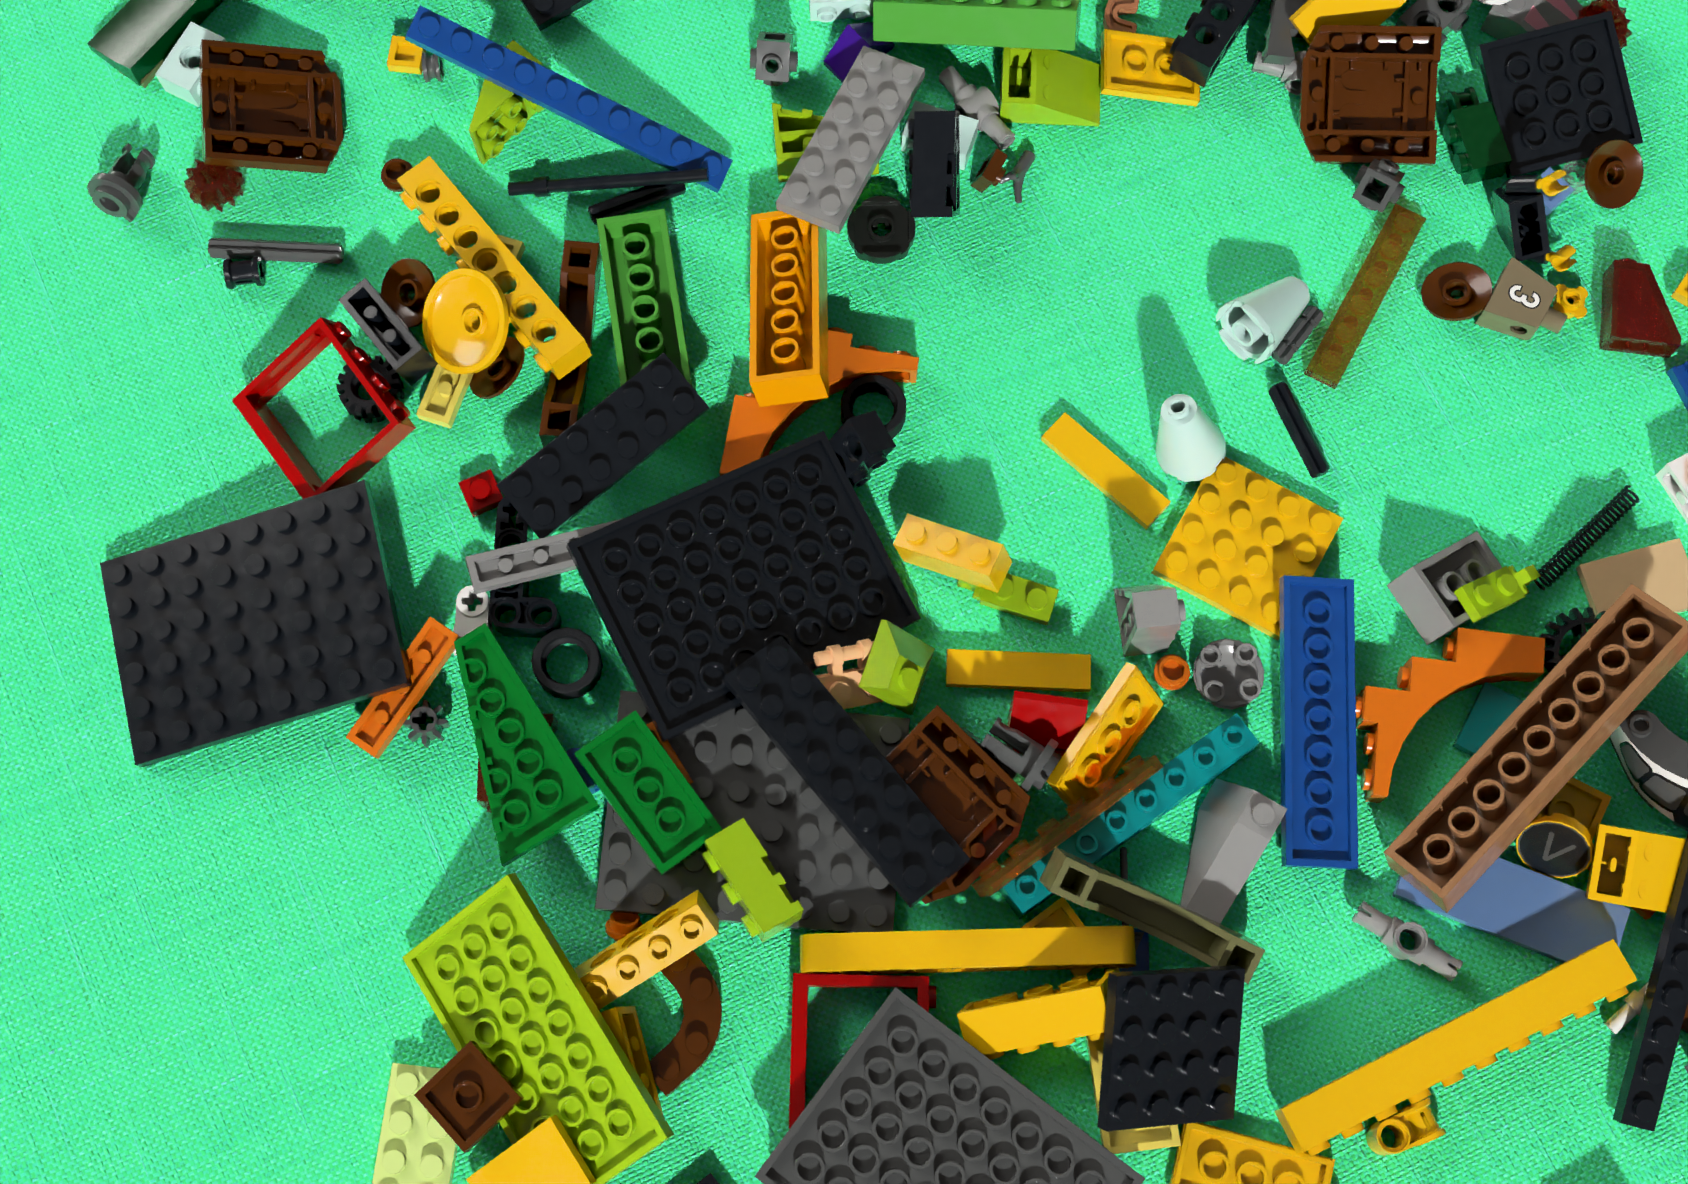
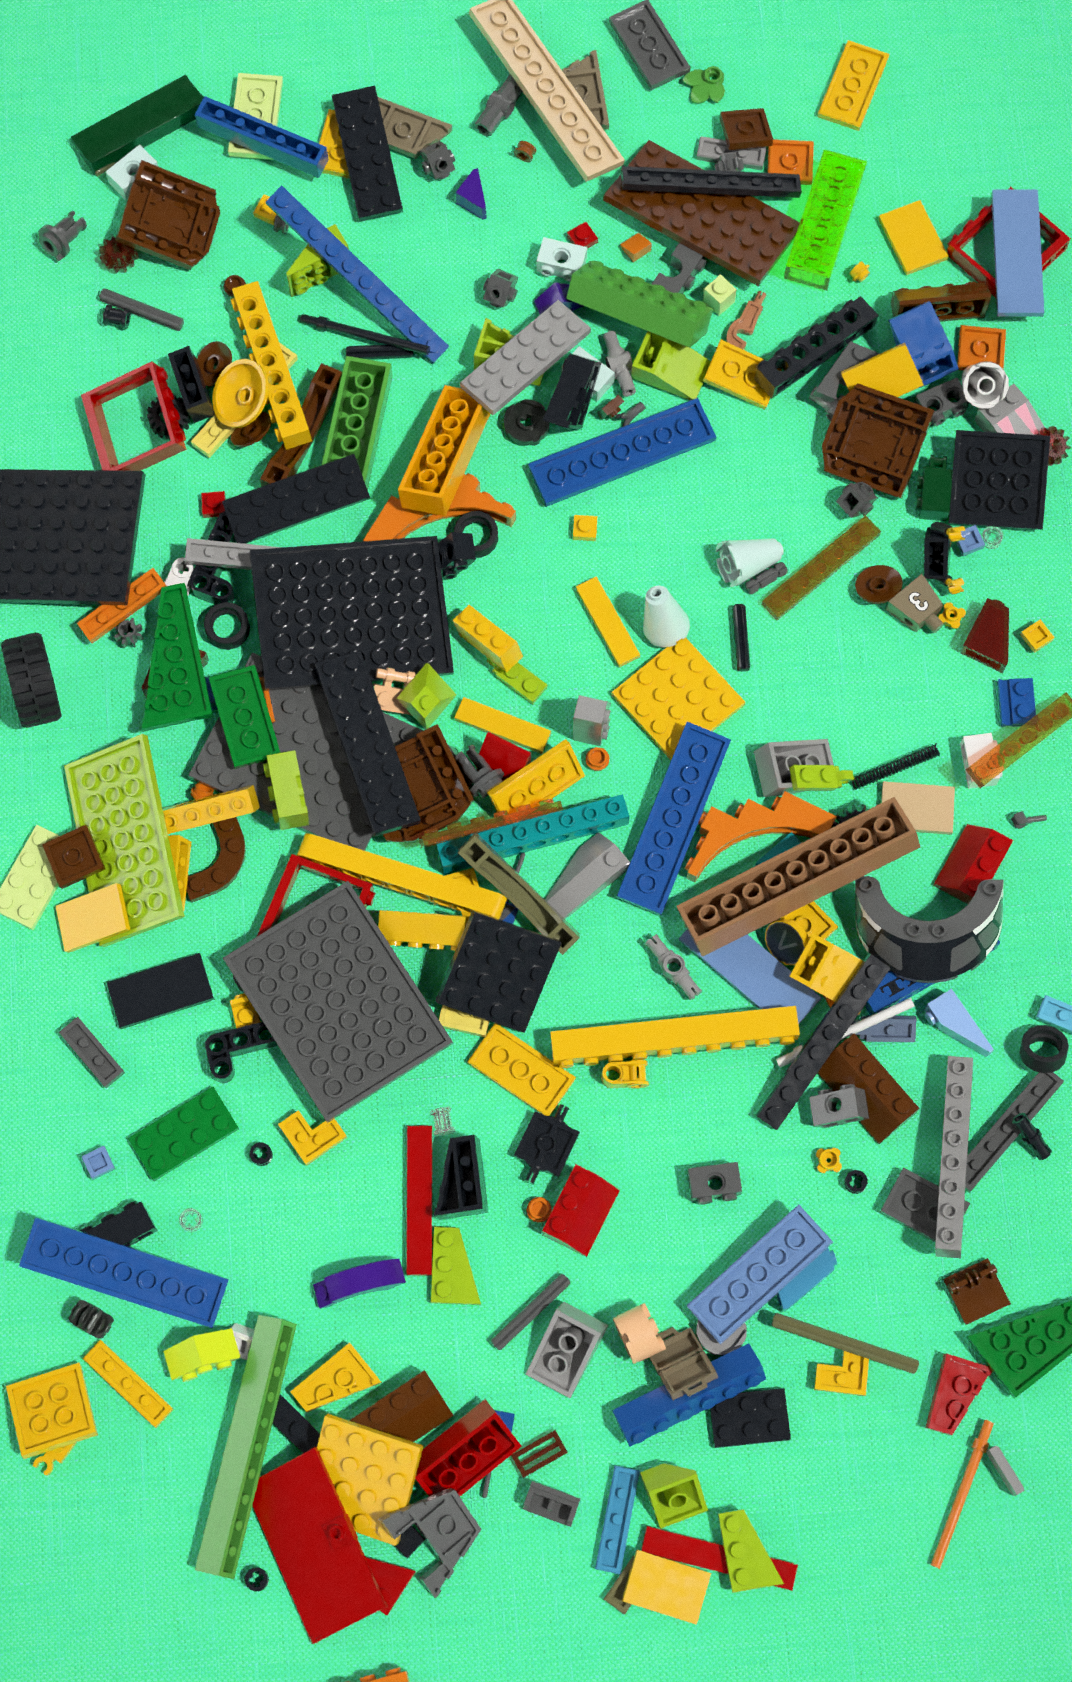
camera: 20 degrees right, 0 degrees up
(308, 850) = (31, 680): none -> black tyre
(1020, 349) = (585, 528): none -> yellow plate
(1028, 228) = (622, 452): none -> blue plate
(1228, 673) = (632, 771): light grey dish -> none
(1623, 178) = (1025, 545): reddish brown dish -> none

